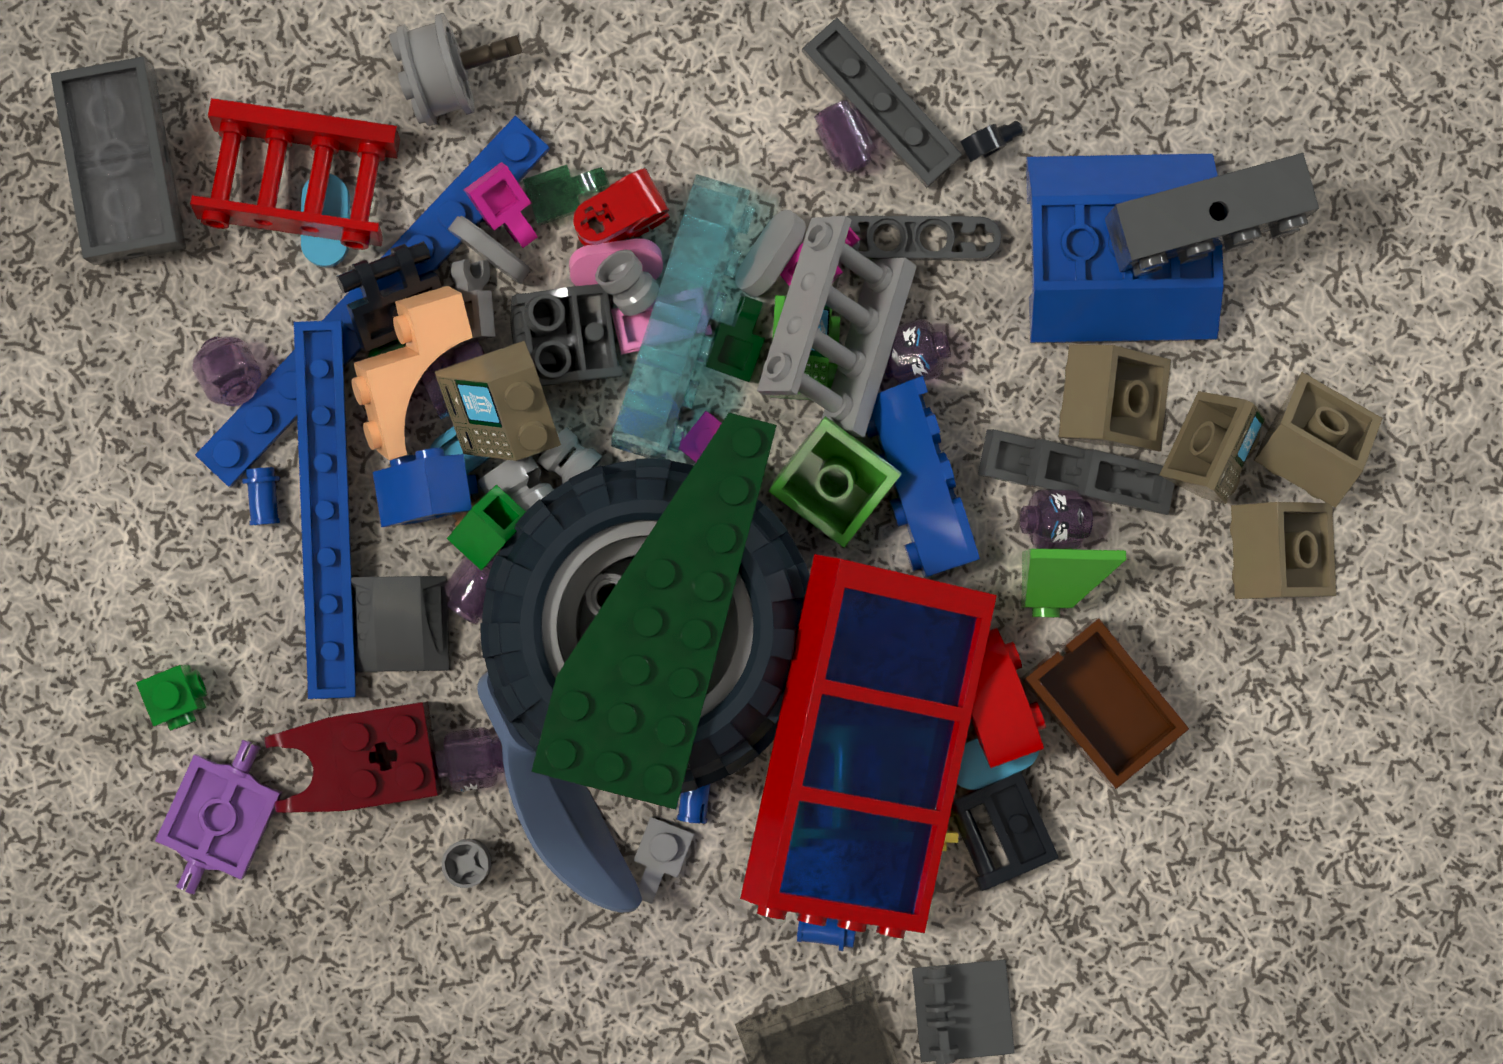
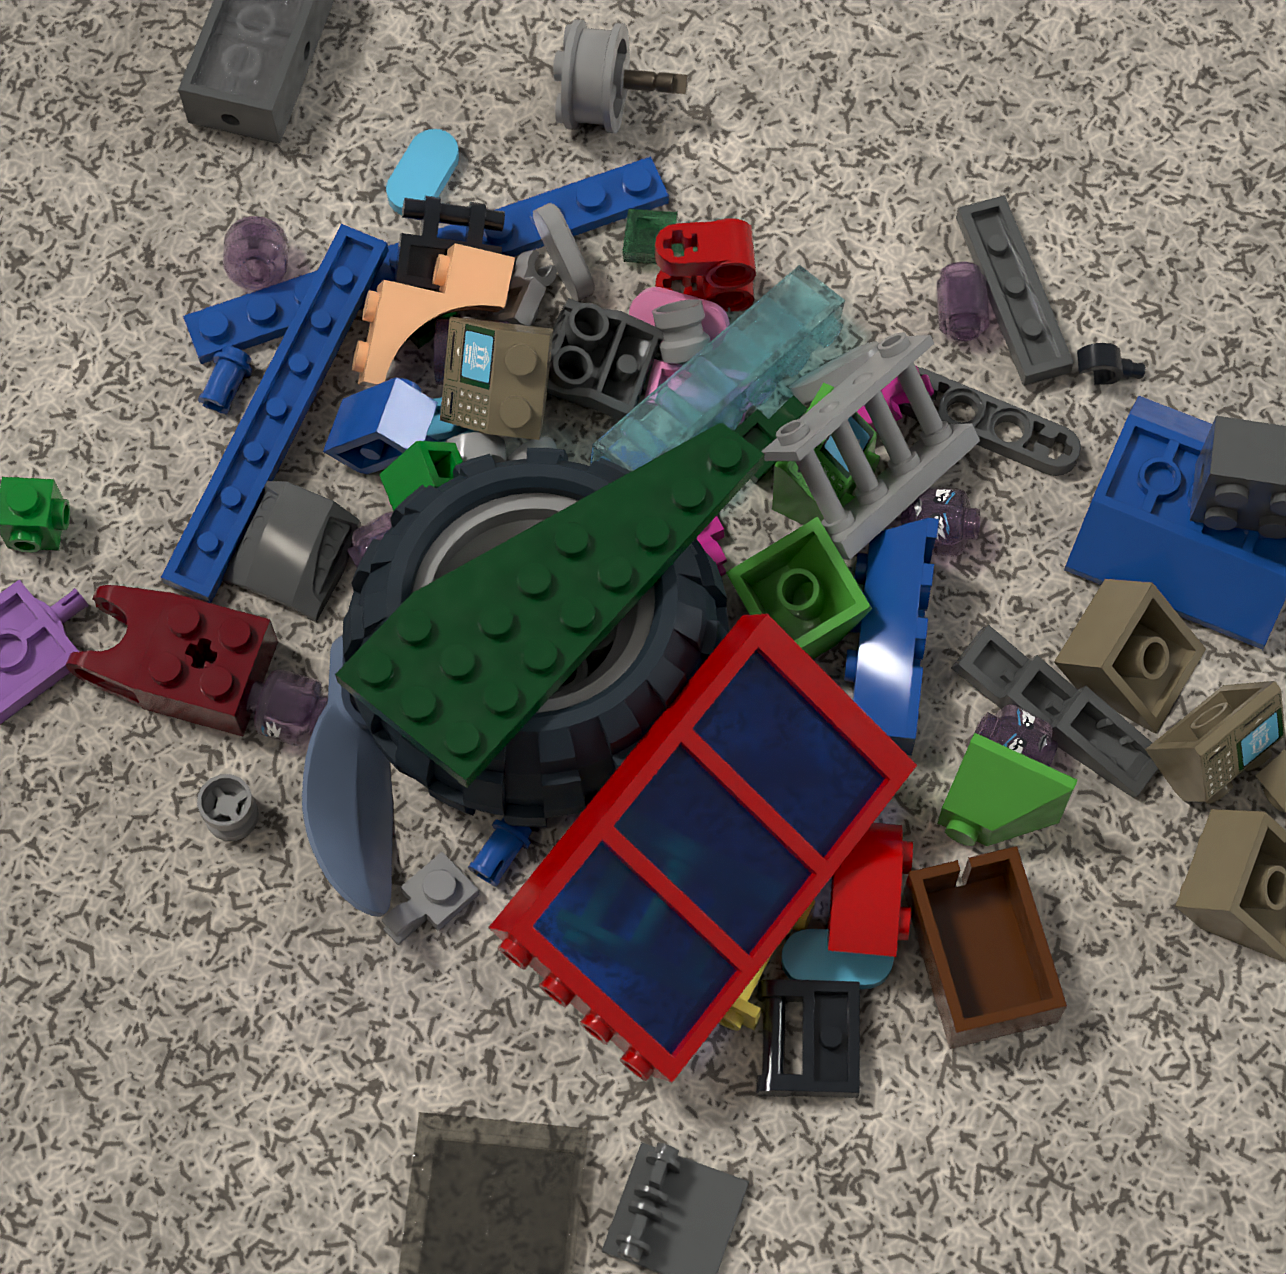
camera: 30 degrees right, 20 degrees down
(280, 130) = (427, 76): red fence -> none
(500, 202) = (597, 210): dark pink plate -> none
(828, 934) = (569, 1056): blue pin -> none

